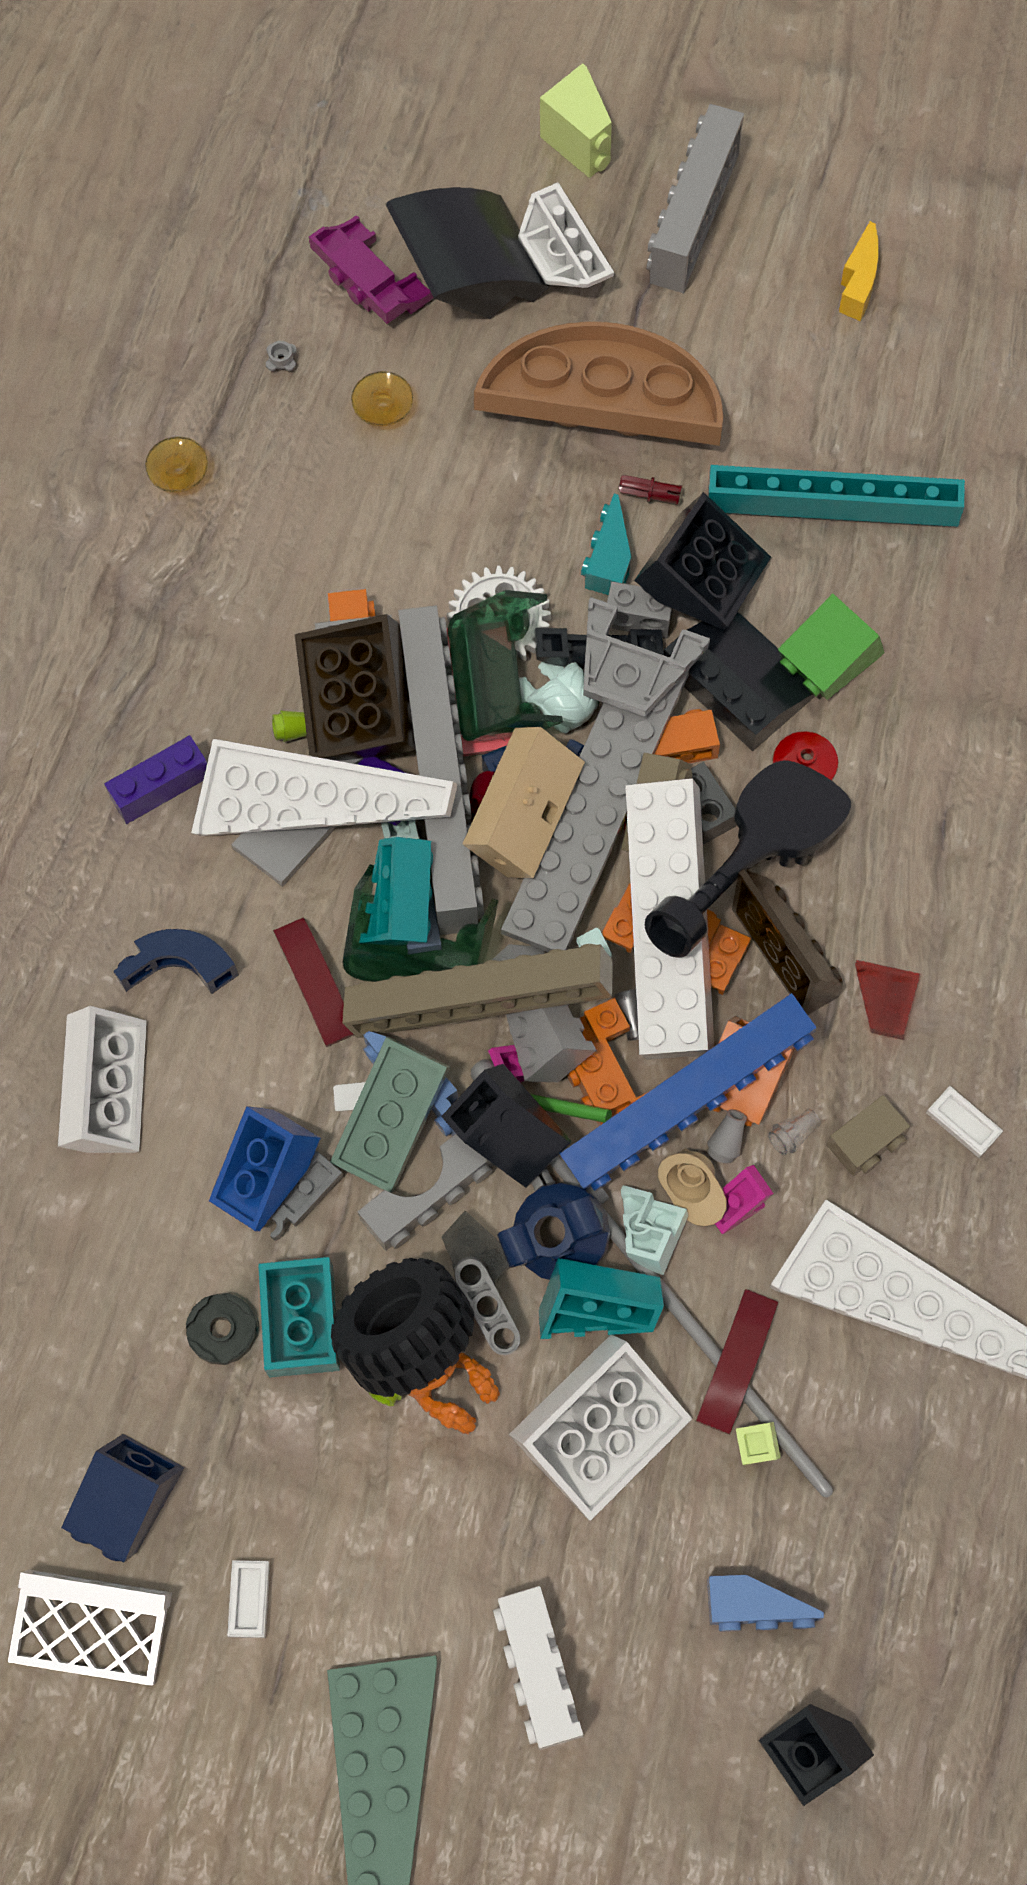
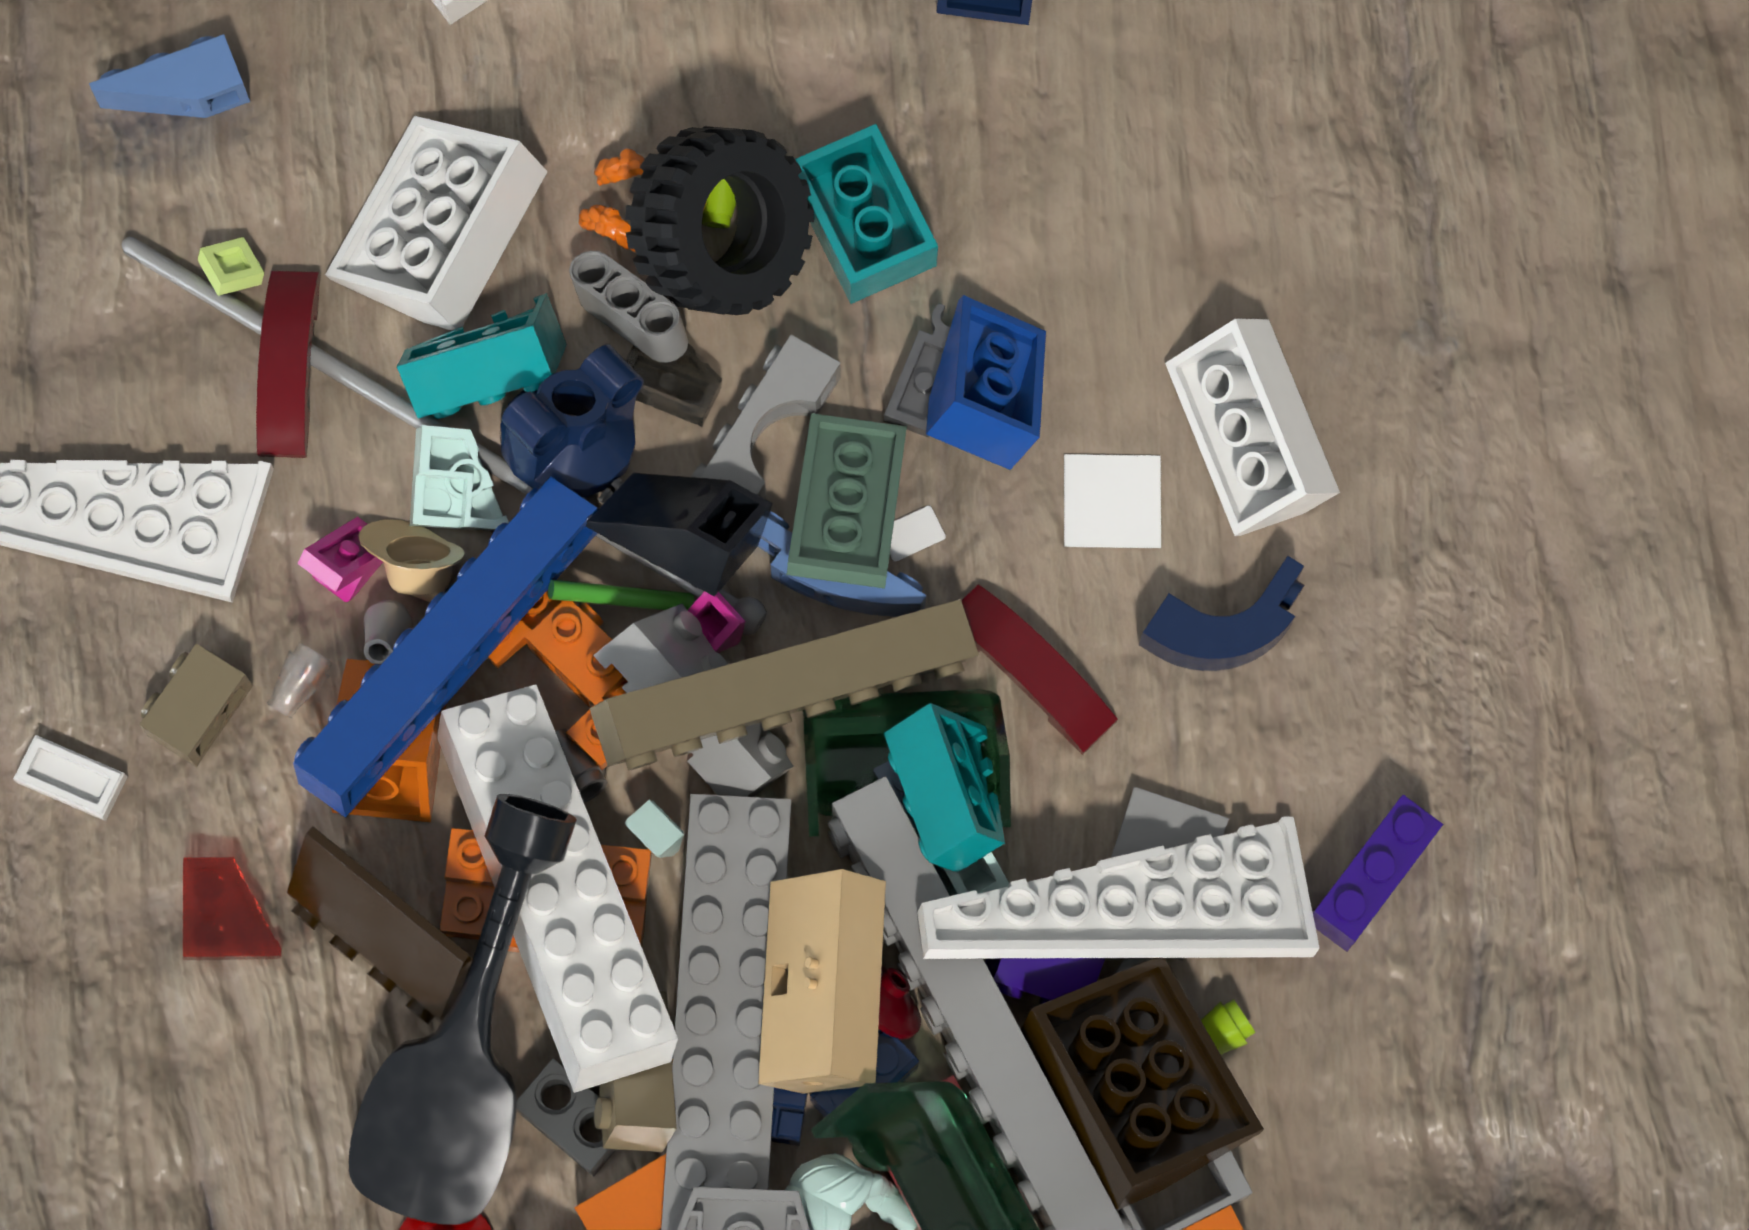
camera: 155 degrees right, 5 degrees up
(214, 1072) = (1112, 501): none -> white sticker
(224, 1349) = (957, 208): pearl dark grey tile -> none

